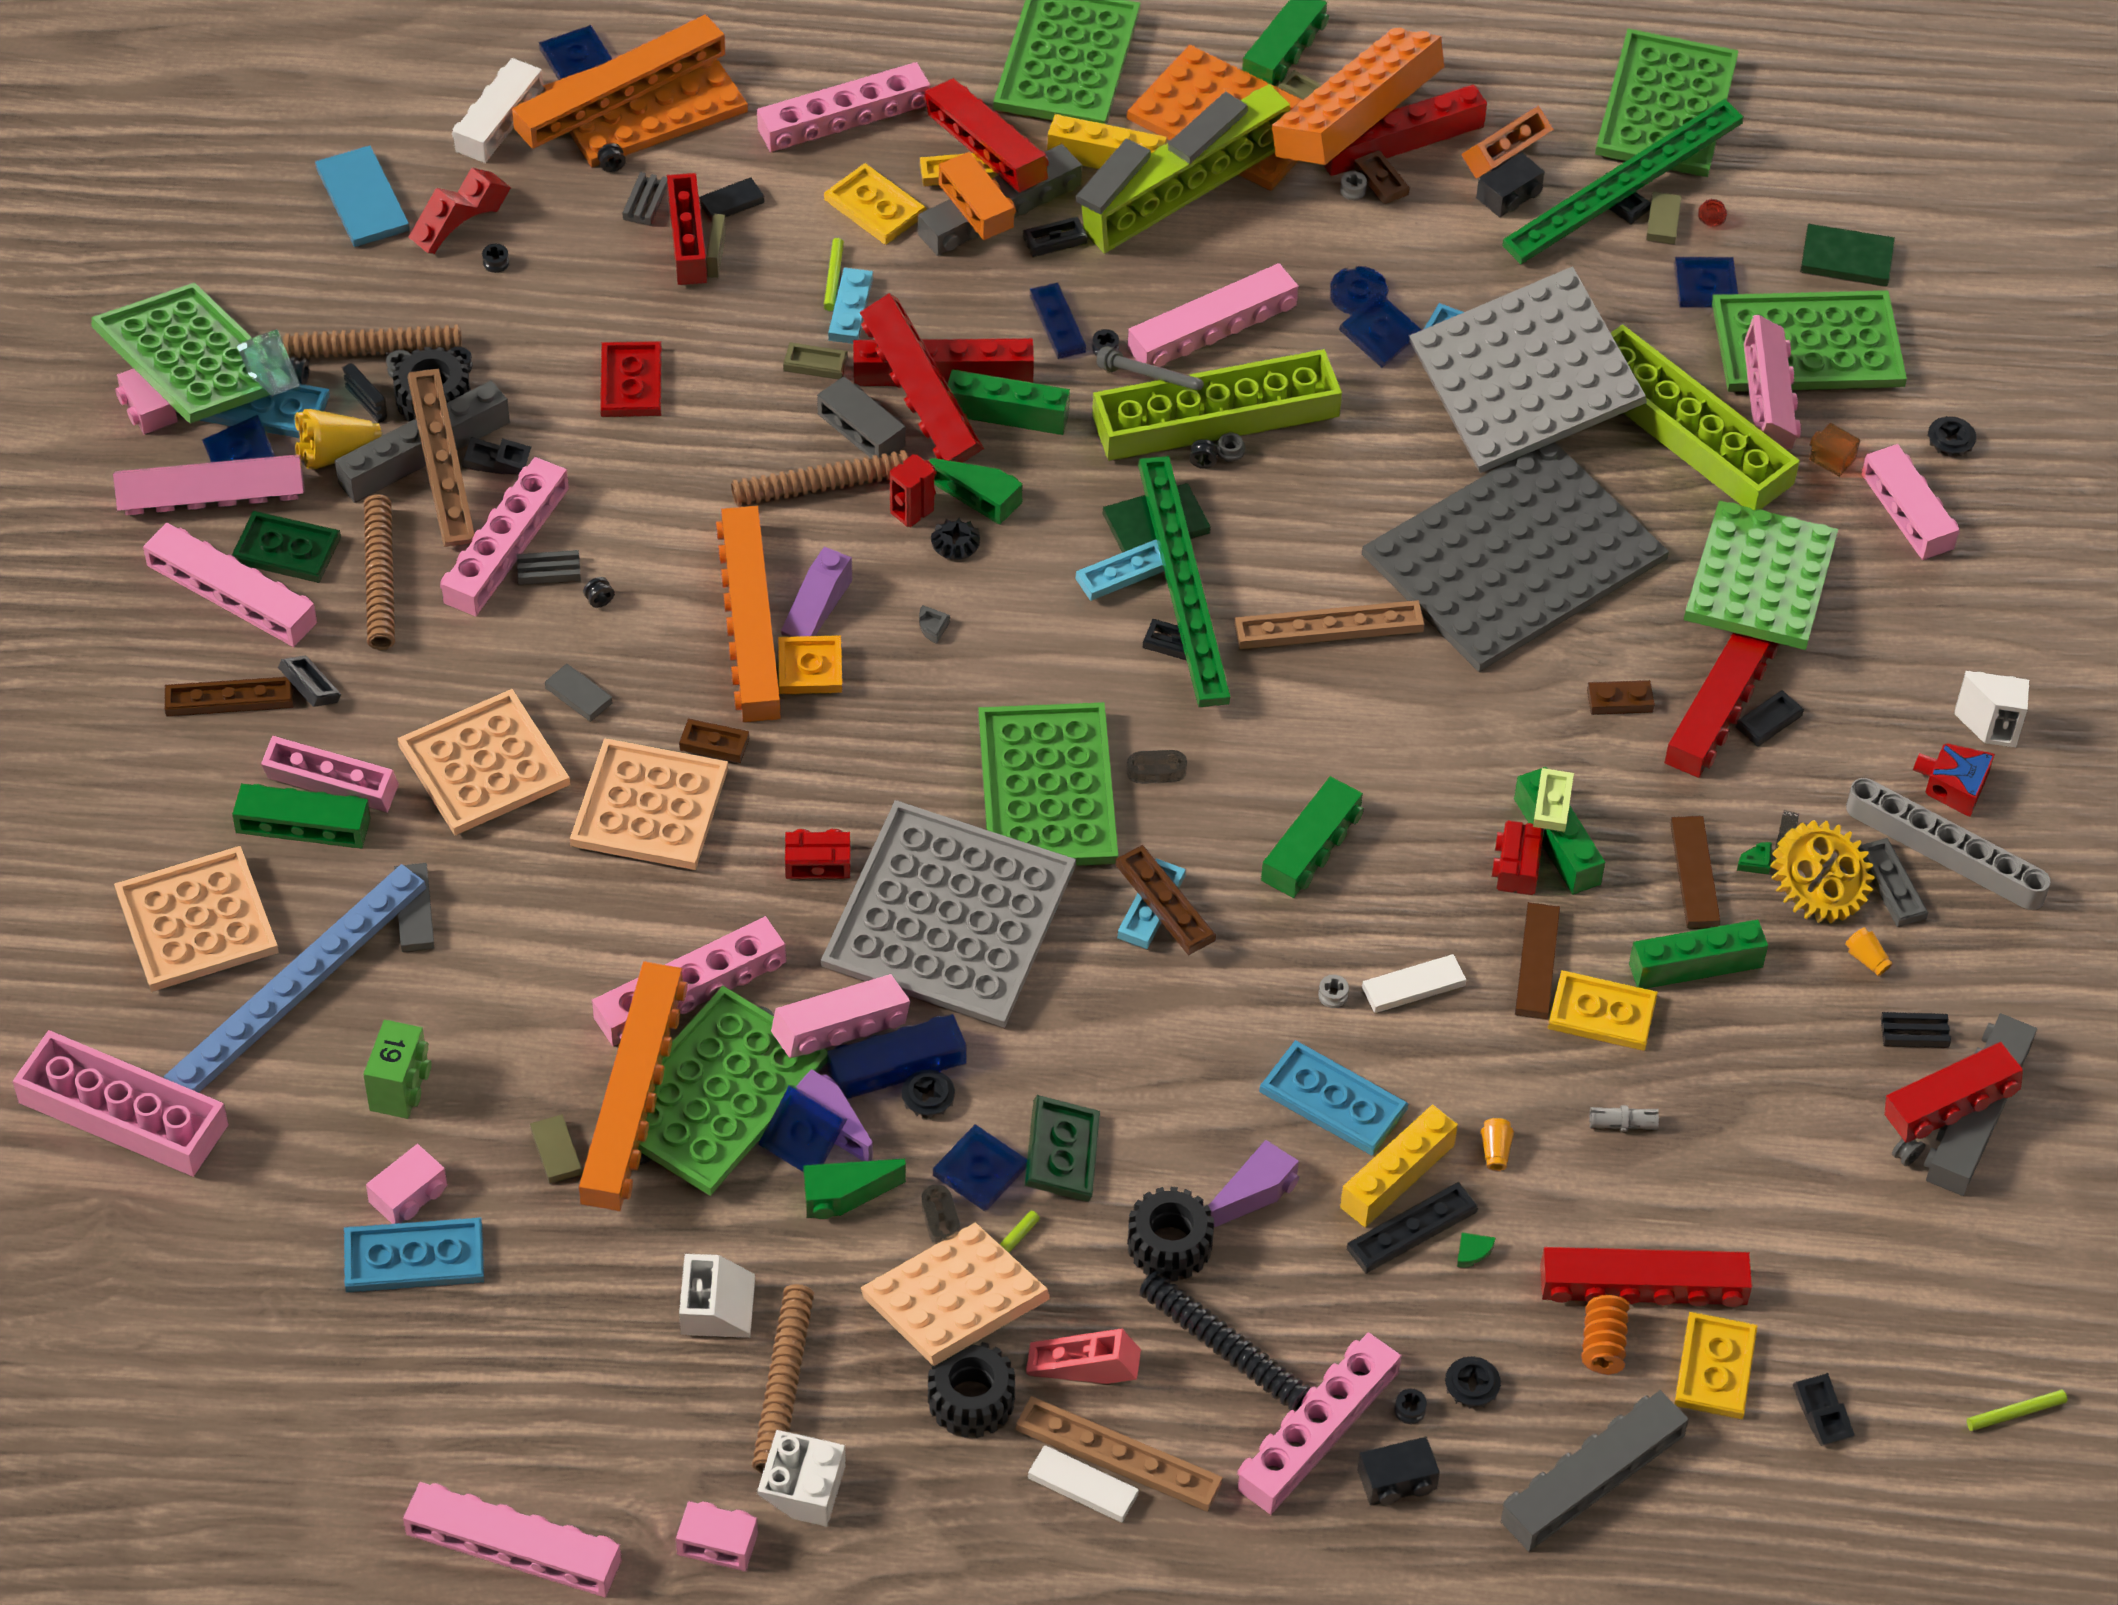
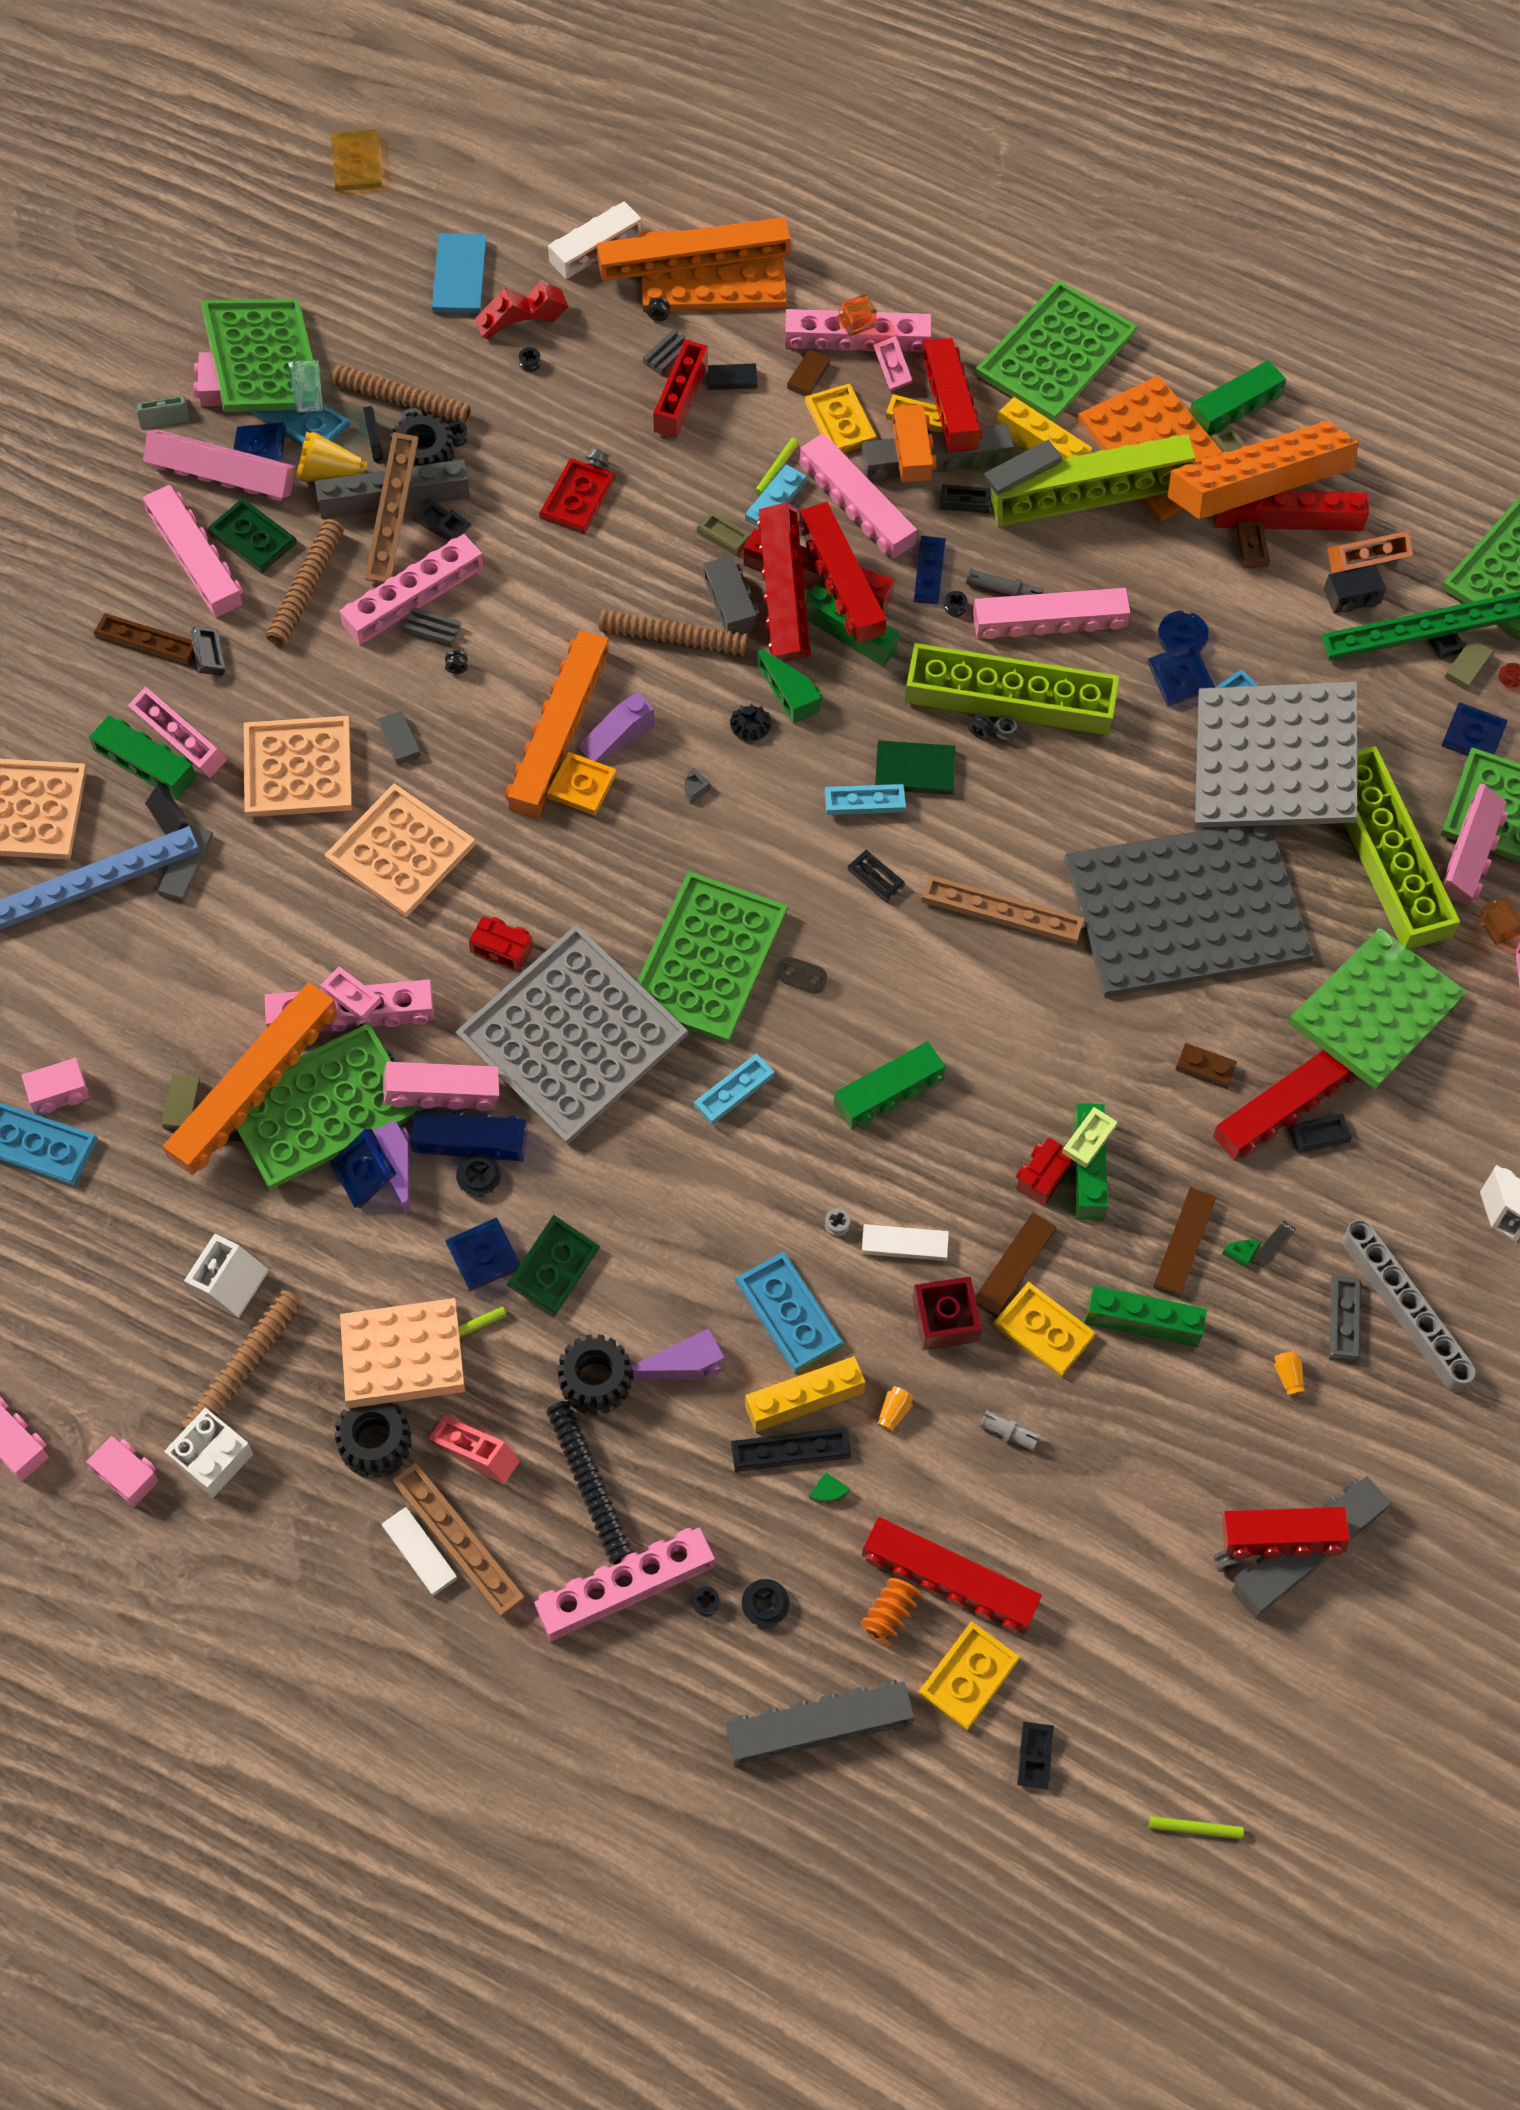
camera: 25 degrees right, 10 degrees up
(104, 454) = (163, 412): none -> sand green slope
(171, 117) = (356, 160): none -> clear yellow tile
(301, 369) = (334, 398): black bush -> none
(362, 860) = (166, 810): none -> black tile
(397, 1069) = (93, 991): bright green brick -> none
(574, 52) = (680, 212): clear blue tile -> none
(634, 331) = (597, 458): none -> dark grey plate
(695, 959) = (350, 993): none -> bright pink plate
(714, 740) = (476, 817): reddish brown plate -> none
(715, 245) = (697, 410): olive tile -> none
(813, 168) = (808, 373): none -> reddish brown tile
(842, 87) = (857, 315): none -> clear orange brick
(845, 1186) = (371, 1226): green slope -> none
(902, 126) = (893, 363): none -> bright pink plate
(912, 490) = (733, 670): red brick -> none
(933, 1217) = (426, 1278): clear smoke beam -> none
(940, 272) = (857, 496): none -> bright pink brick
(980, 348) = (841, 573): none -> red brick
(1112, 360) = (952, 620): dark grey piece -> none
(1142, 307) = (1000, 584): none -> dark grey pin
(1165, 900) = (743, 1092): reddish brown tile -> none
(1184, 582) = (903, 830): green plate -> none
(1207, 127) = (1118, 453): dark grey tile -> none
(1357, 179) = (1229, 536): light grey bush -> none
(1398, 1471) = (663, 1654): black brick -> none
(1499, 1029) = (946, 1313): none -> dark red brick
(1846, 890) = (1299, 1310): yellow gear -> none
(1914, 1025) = (1298, 1447): black tile -> none
(1956, 776) = (1448, 1249): red torso -> none

